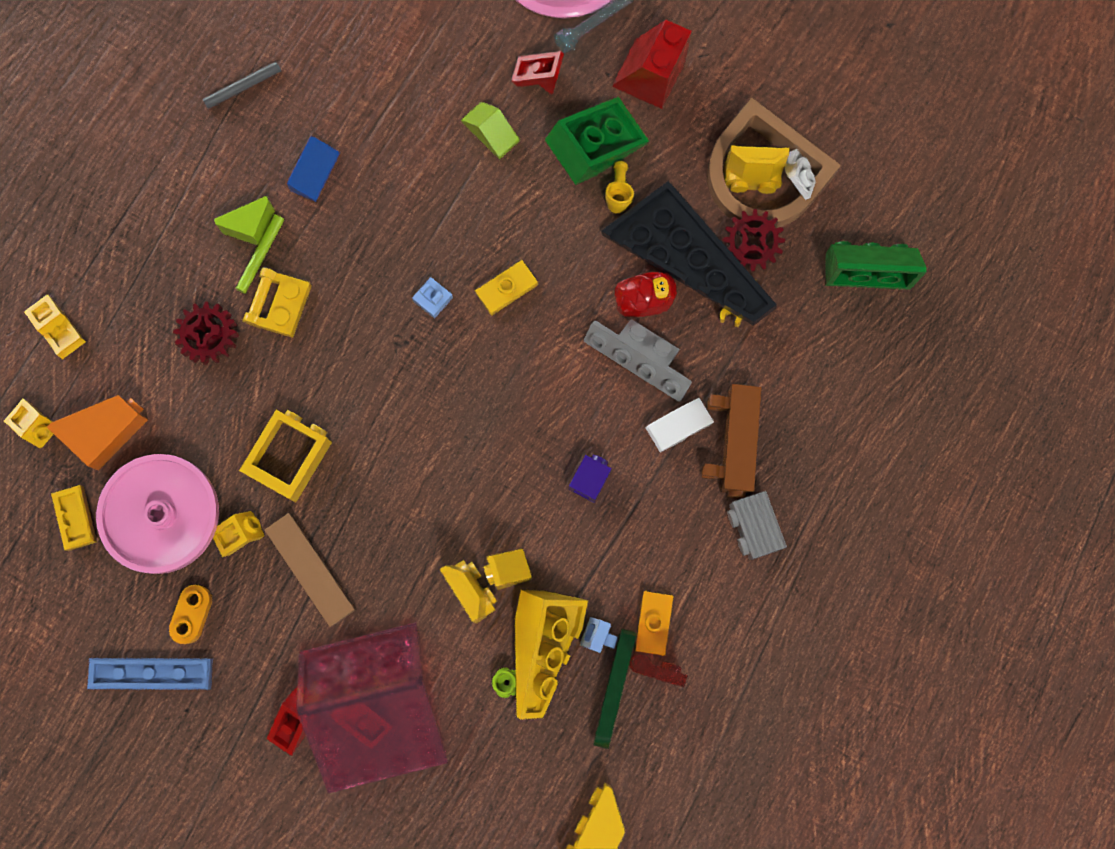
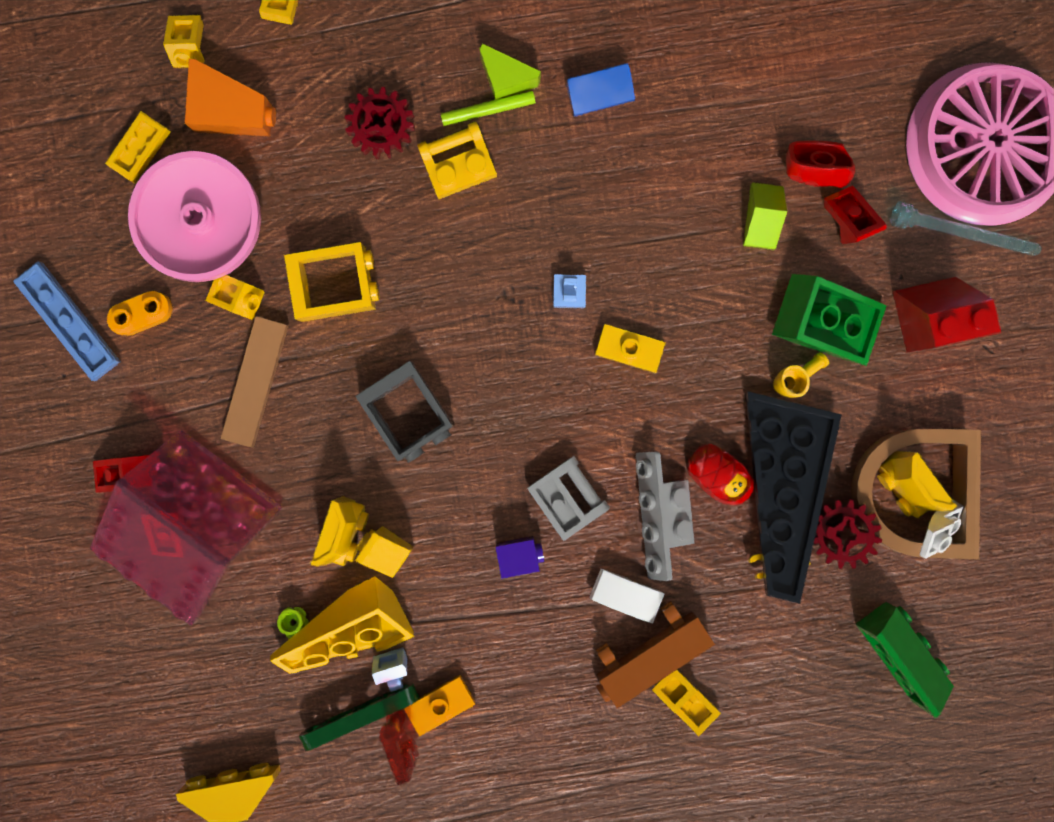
camera: 50 degrees right, 10 degrees up
(392, 471) = (385, 386): none -> dark grey window
(485, 66) = (819, 163): none -> red piece
(576, 421) = (560, 505): none -> light grey plate
(756, 525) = (589, 731): light grey brick -> none
(789, 443) = (686, 701): none -> yellow slope

